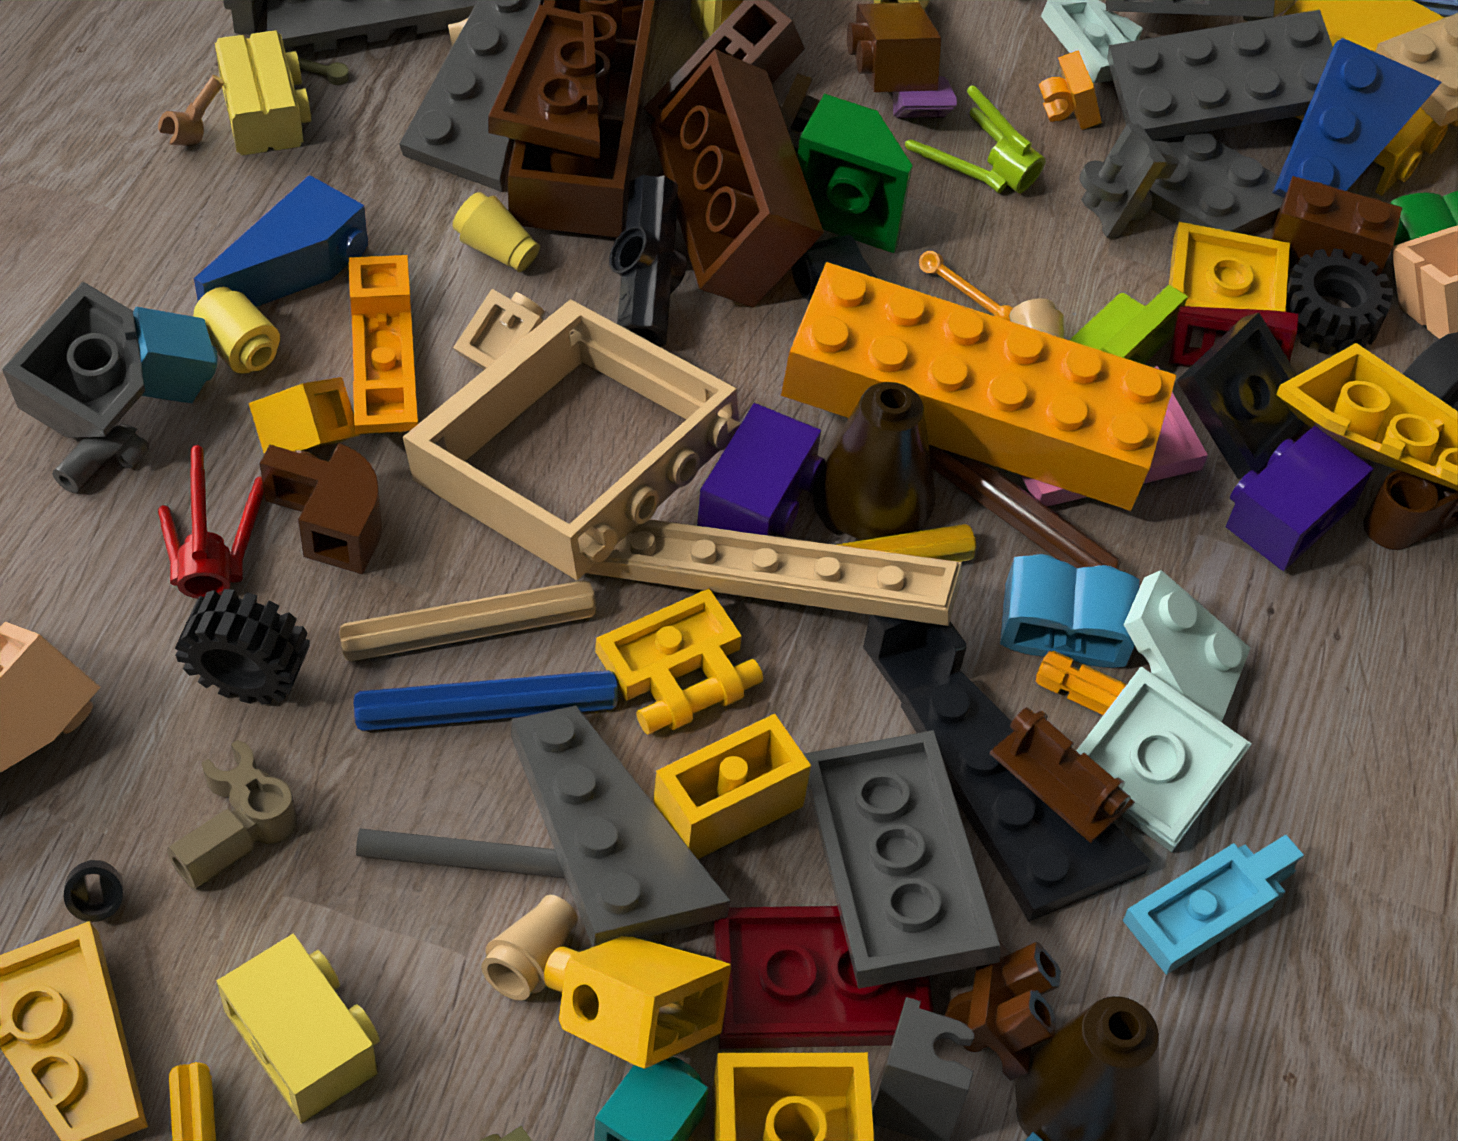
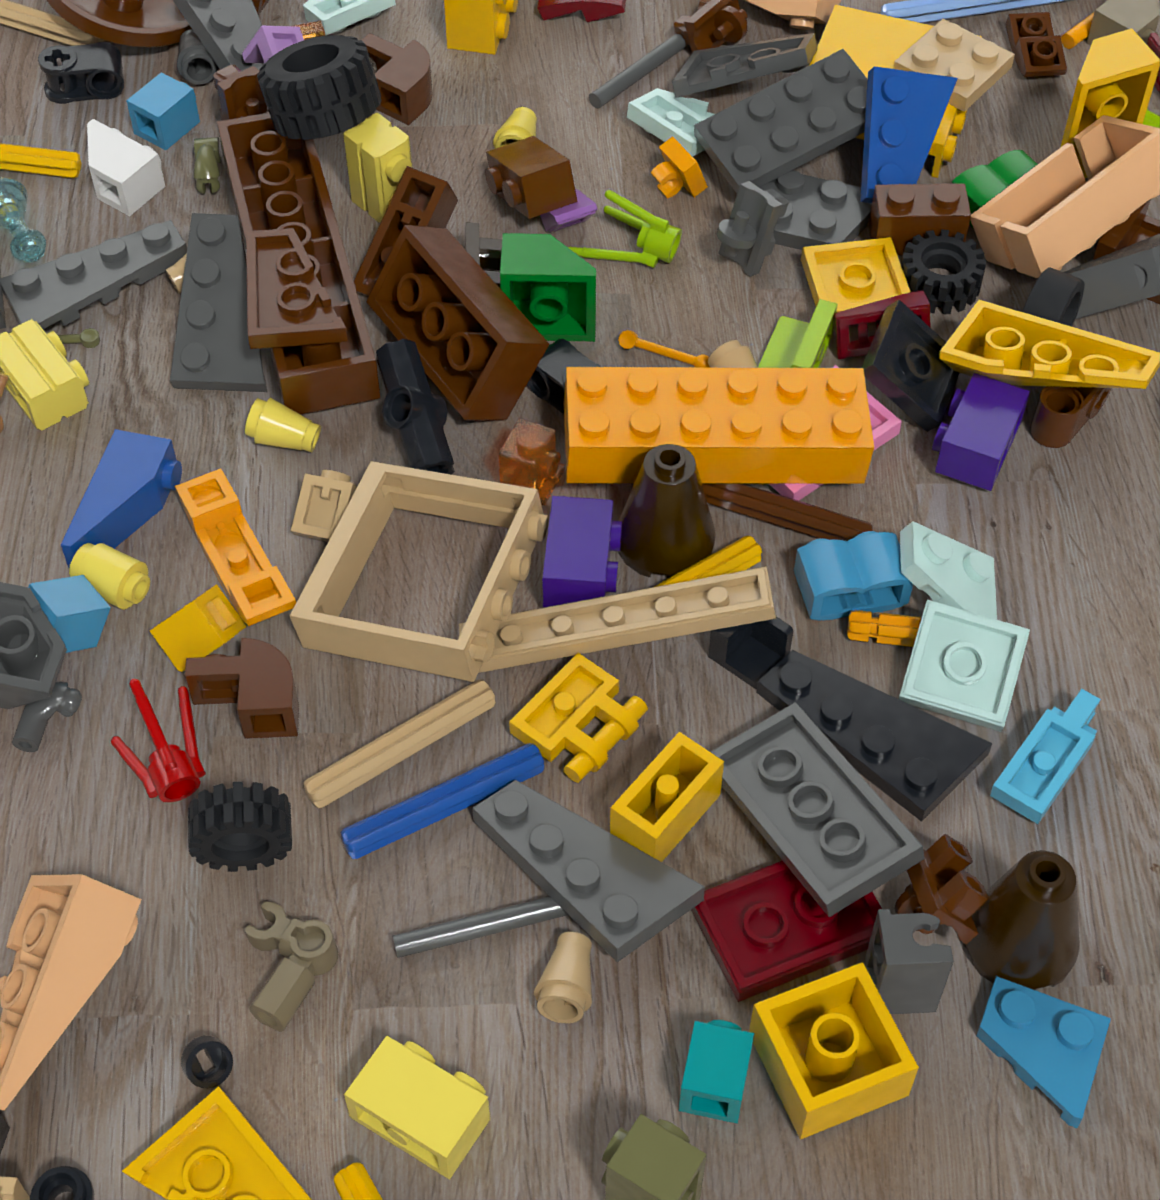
camera: 15 degrees left, 0 degrees up
(639, 997) = (670, 985): yellow torso -> none
(752, 357) = (531, 459): none -> clear orange brick
(1061, 776) = (911, 706): reddish brown hinge -> none

